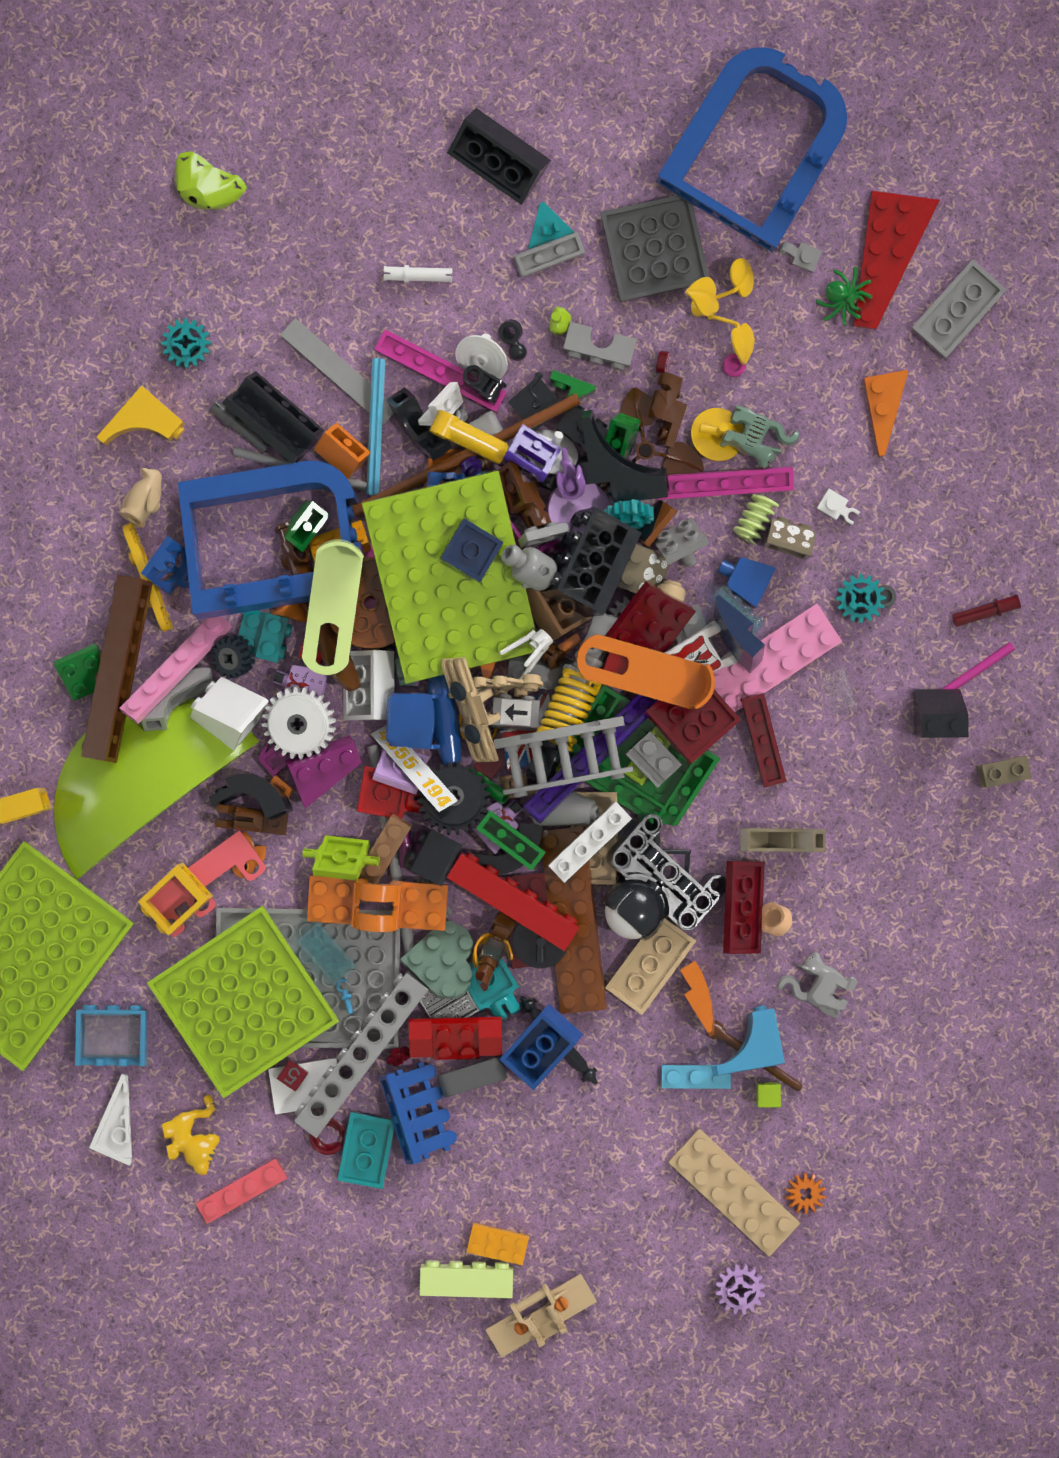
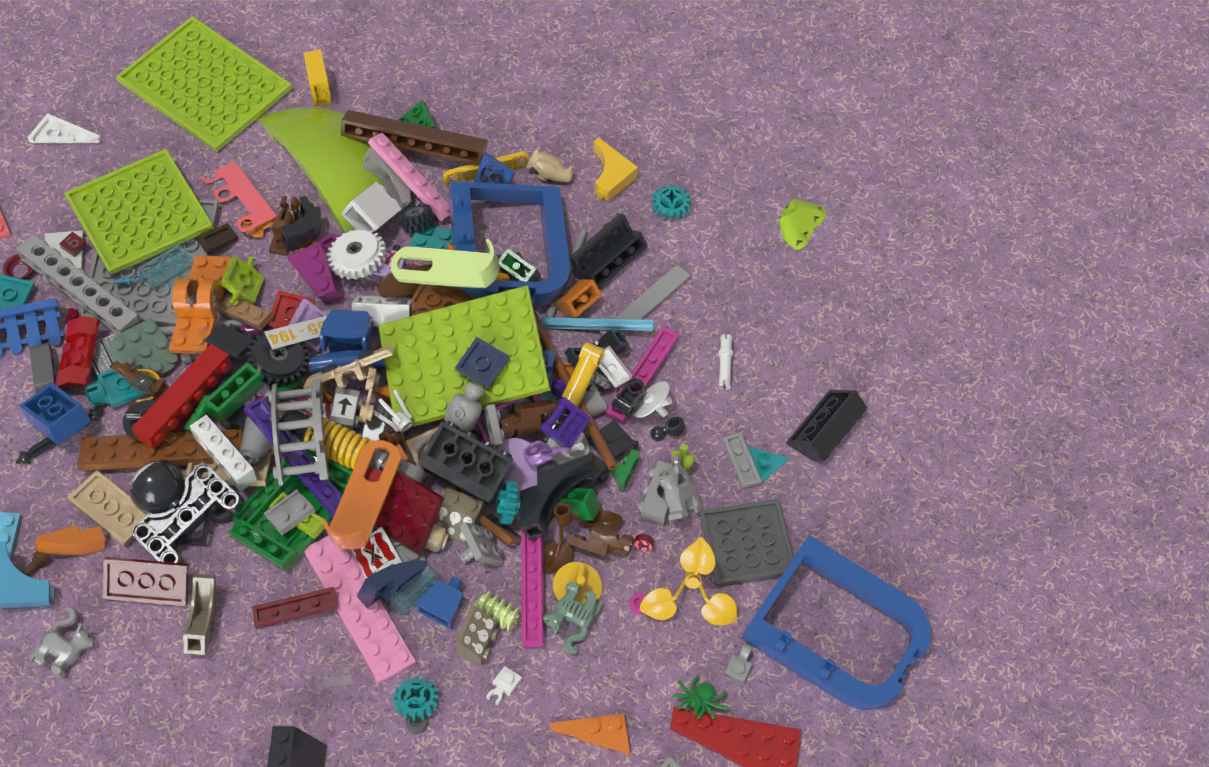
camera: 90 degrees right, 30 degrees down
(111, 1036) = (130, 131): window -> none
(191, 883) = (229, 187): yellow window -> none
(197, 1149) = (29, 179): yellow animal -> none
(274, 899) = (217, 238): none -> dark brown tile
(530, 878) = (199, 413): none -> green piece
(604, 322) = (680, 495): none -> light grey animal
(693, 729) = (313, 548): dark red plate -> none
(776, 919) = (129, 610): light nougat piece -> none

